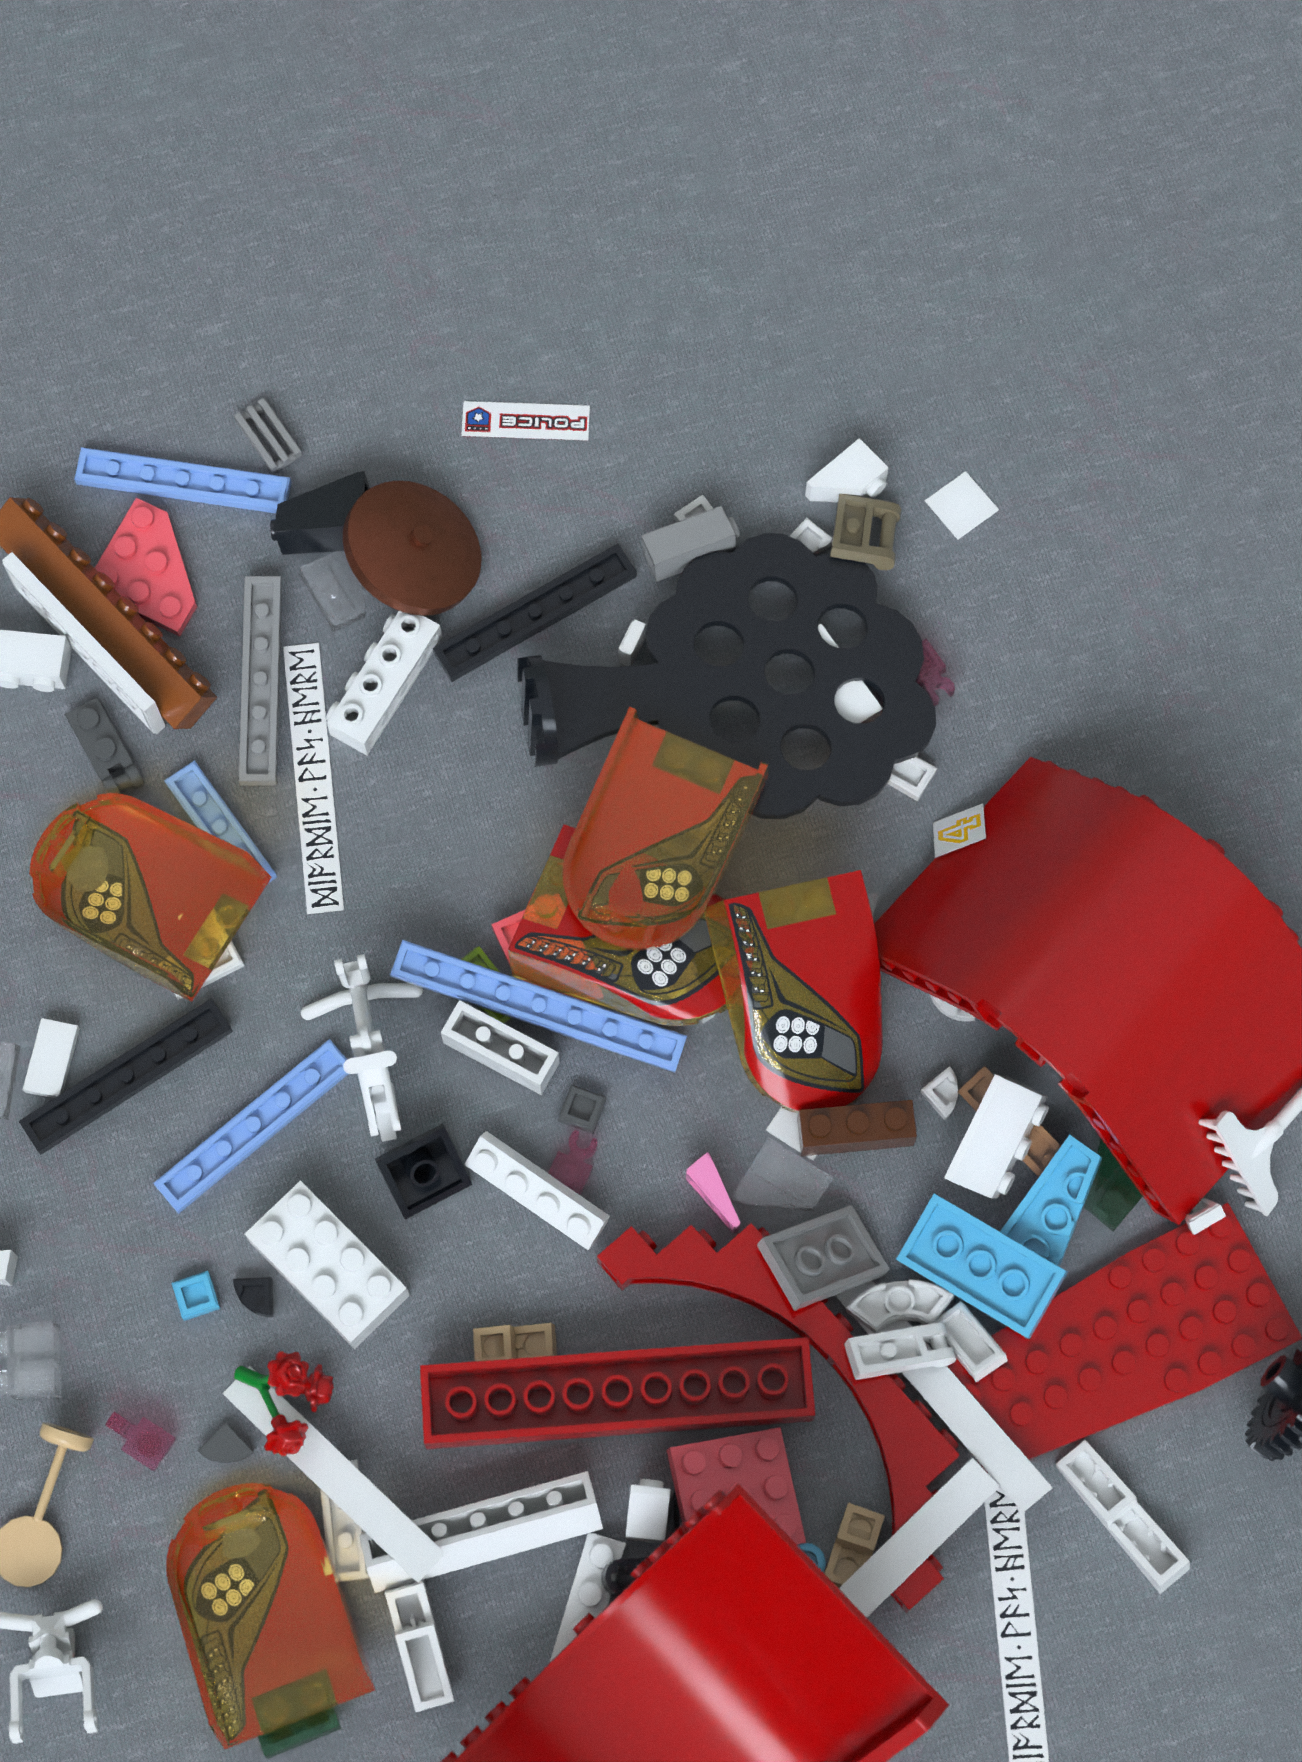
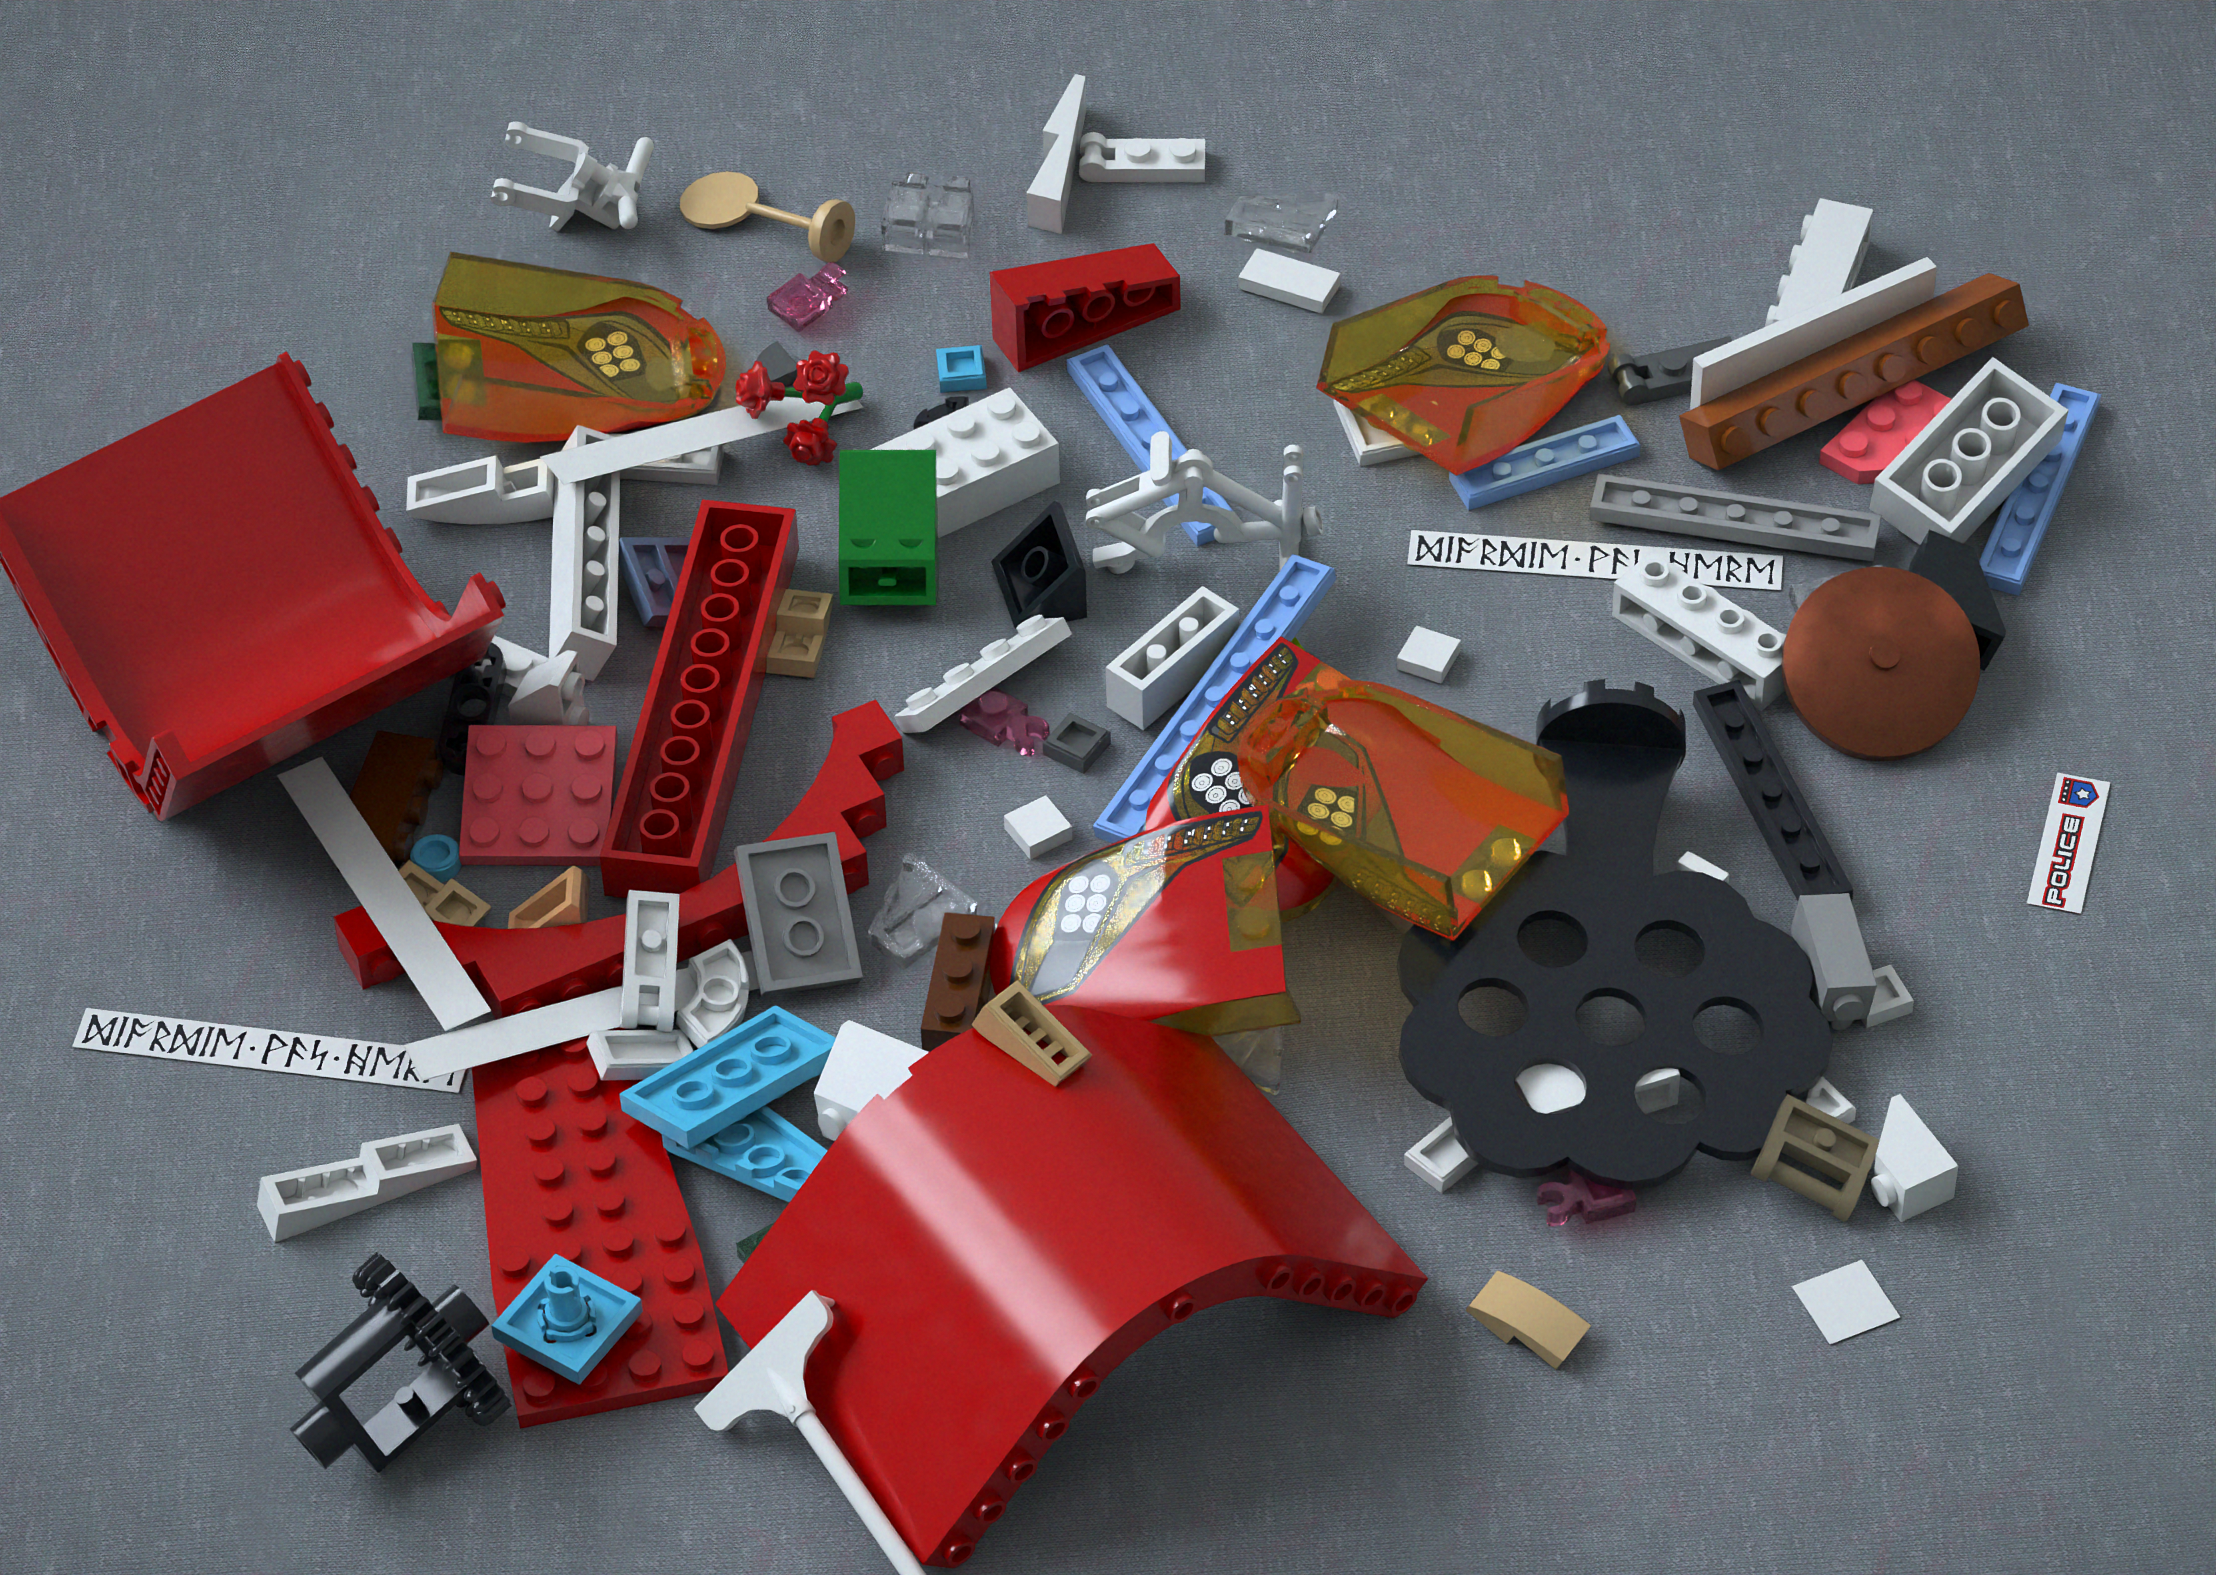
camera: 105 degrees right, 25 degrees down
(117, 1207) = (1078, 301): none -> red wedge
(125, 1076) = (1246, 337): black plate -> none
(192, 515) = (1969, 456): none -> white brick
(253, 413) = (2085, 569): light grey tile -> none
(432, 1284) = (888, 527): none -> green slope
(440, 873) = (1428, 654): none -> white tile
(485, 1469) = (652, 573): none -> sand blue wing
(672, 1116) = (1038, 827): none -> white tile
(708, 1184) = (933, 837): bright pink slope -> none
(845, 1452) = (557, 904): none -> light nougat slope
(959, 830) = (1338, 1173): white sticker -> none
(1016, 1016) = (1019, 1004): none -> tan slope
(1037, 692) = (1538, 1320): none -> tan slope
(1204, 1215) = (715, 1334): white tile -> none
(1250, 1305) = (562, 1292): none -> medium azure plate

